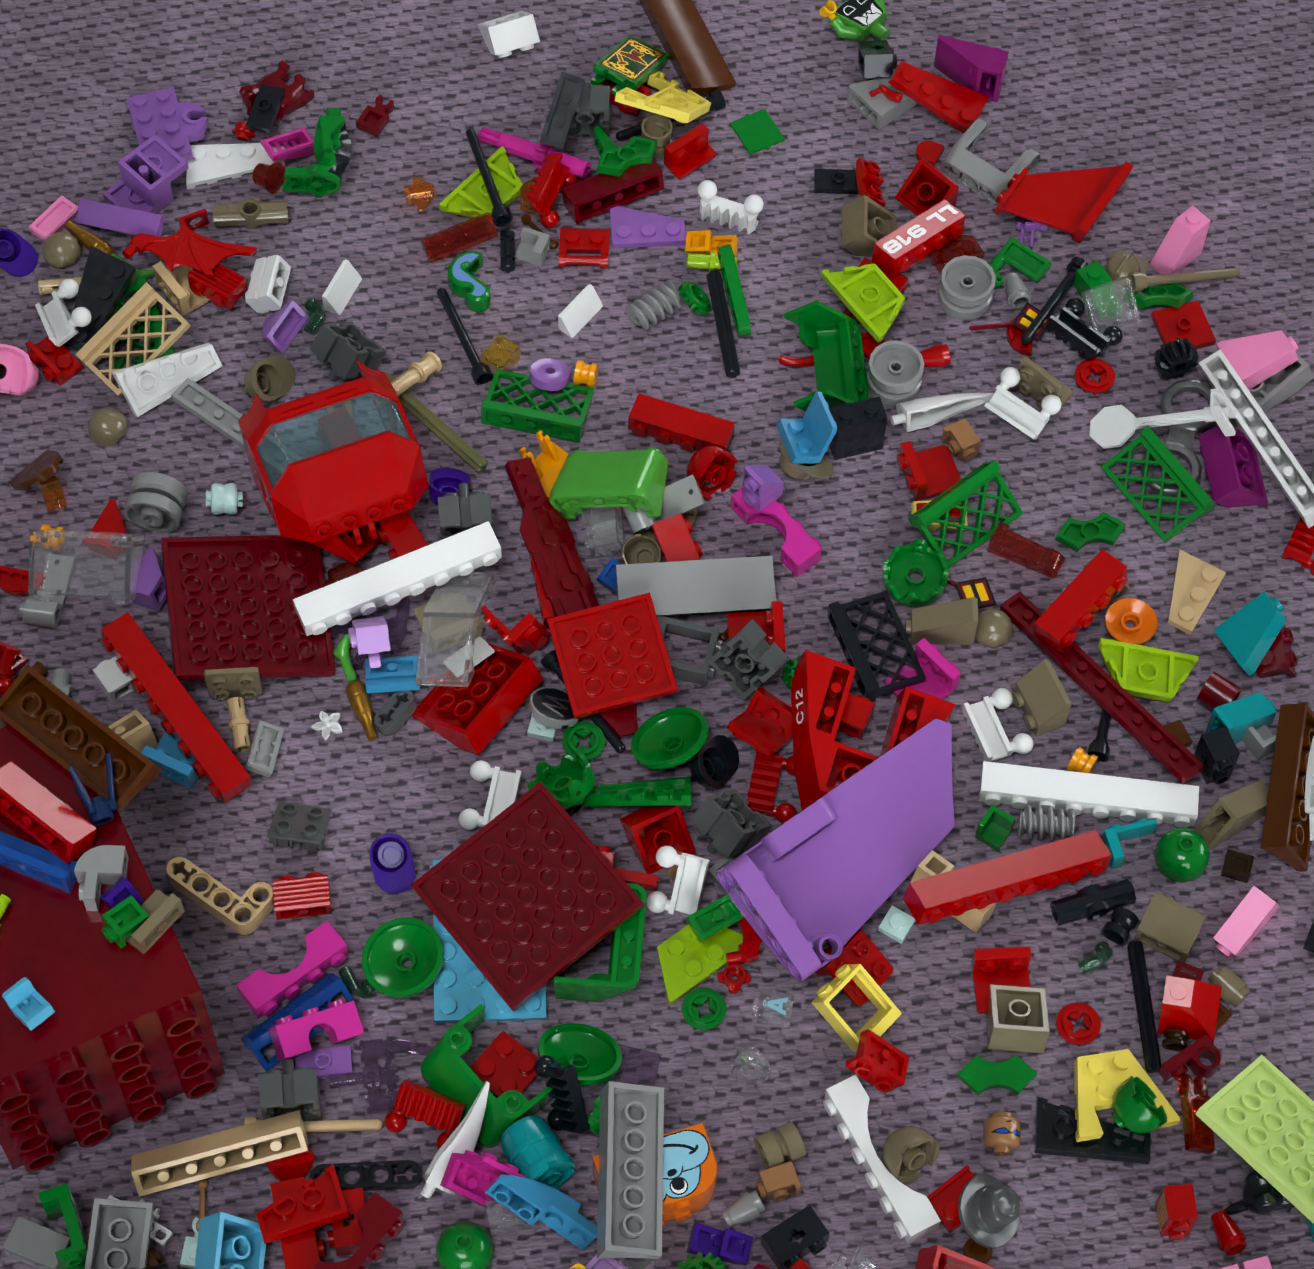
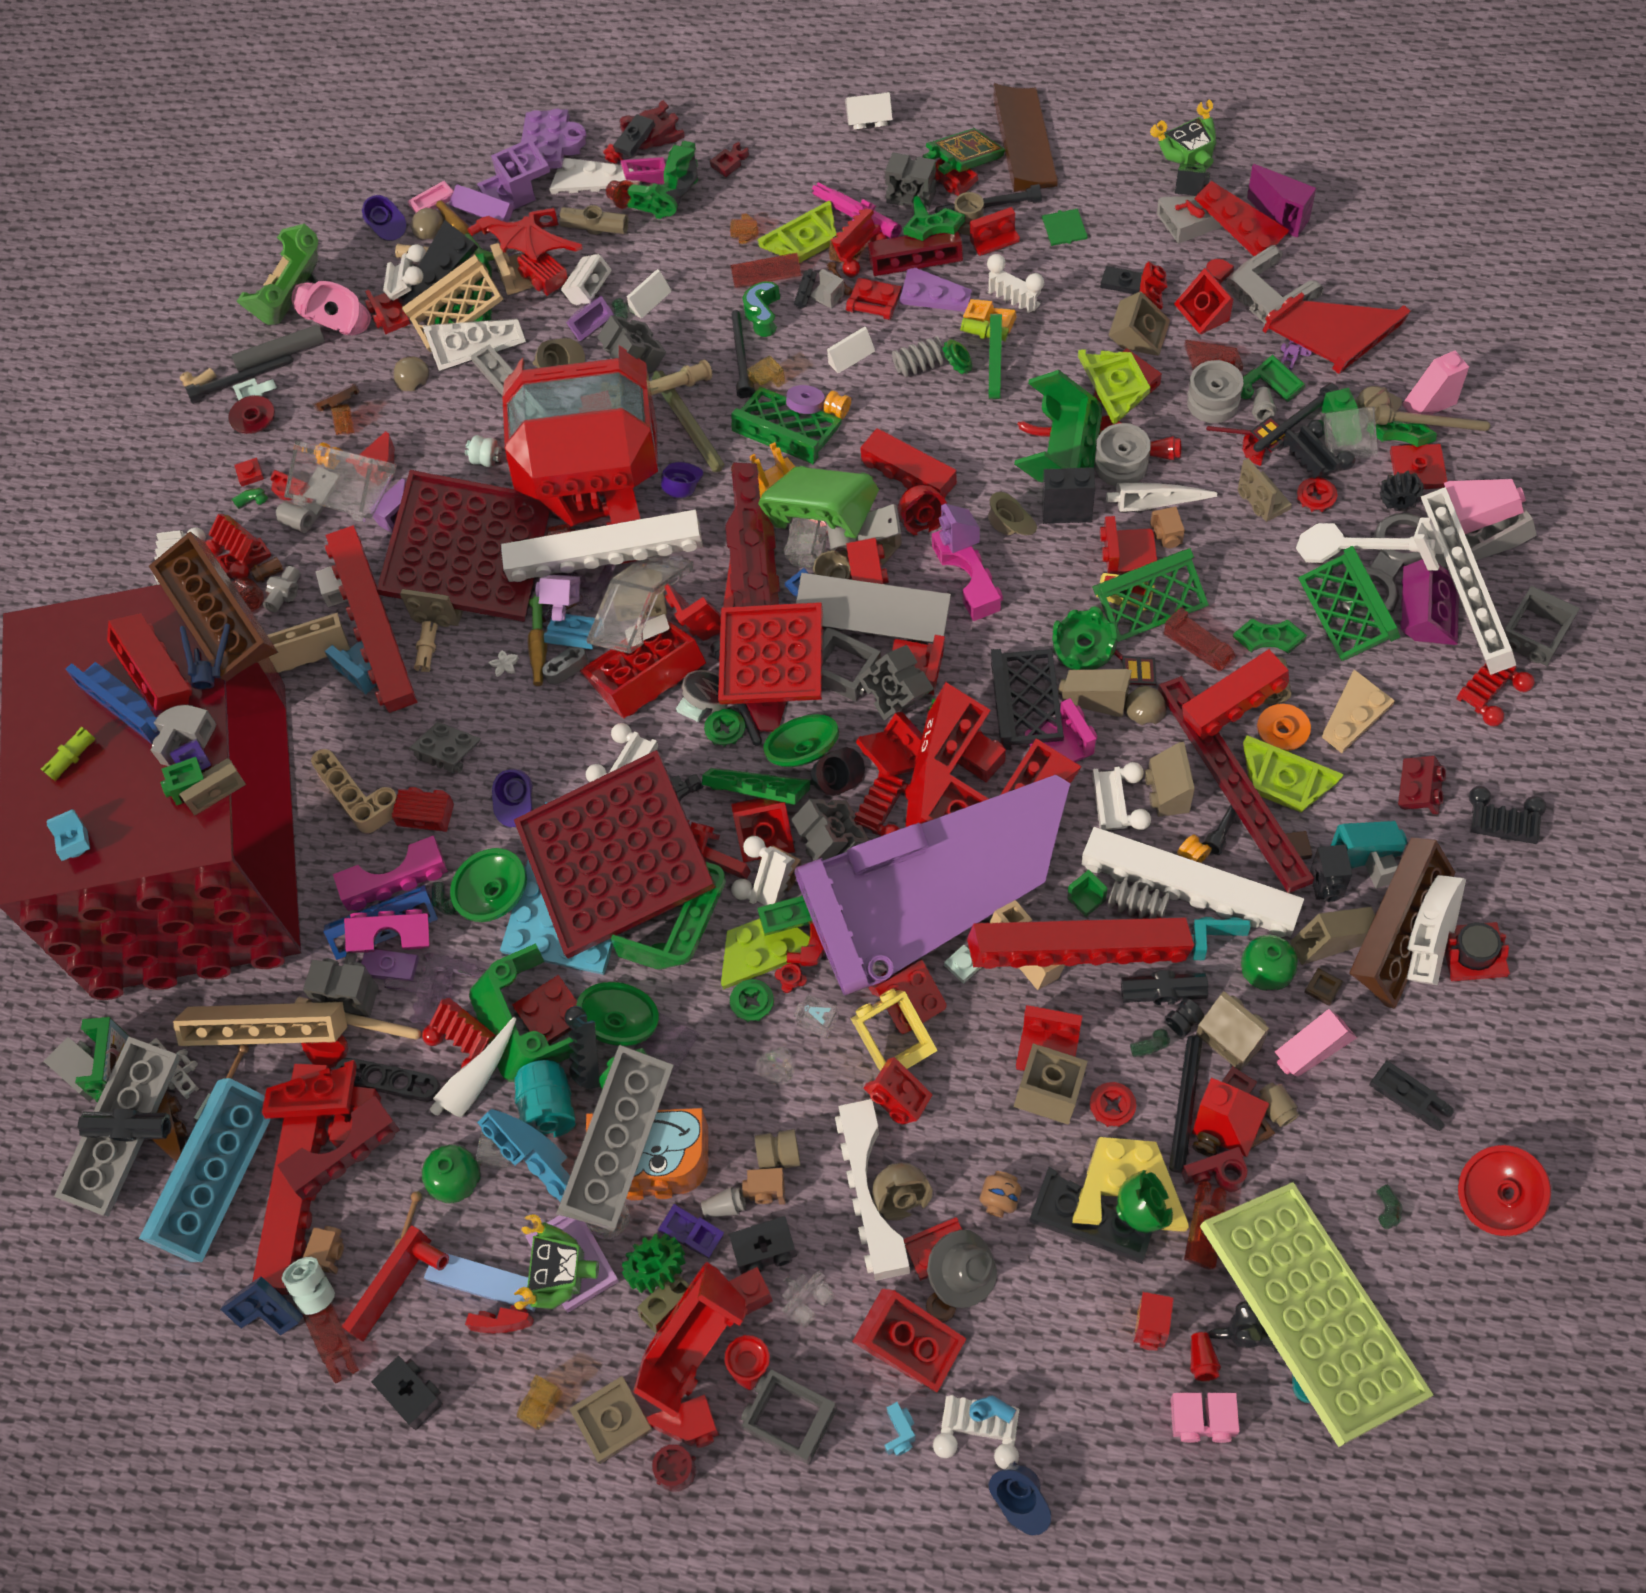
camera: 25 degrees right, 0 degrees up
(155, 502) = (421, 441): light grey wheel -> none
(264, 748) = (439, 672): light grey plate -> none
(463, 510) = (674, 498): dark grey brick -> none
(473, 1173) = (473, 1100): dark pink bracket -> none
(500, 213) = (807, 255): black piece -> none
(562, 110) = (885, 173): black hinge -> none
(567, 781) = (692, 760): green plate -> none
(669, 101) = (986, 183): light yellow wing -> none
(723, 324) = (977, 385): black axle -> none
(809, 436) = (1018, 495): dark azure bracket -> none
(918, 238) = (1181, 339): red brick -> none
(984, 1075) = (1004, 1132): green tile -> none
(1016, 410) = (1230, 511): white gear -> none
(1218, 691) = (1351, 810): dark red piece -> none
(1252, 631) = (1403, 760): teal slope -> none

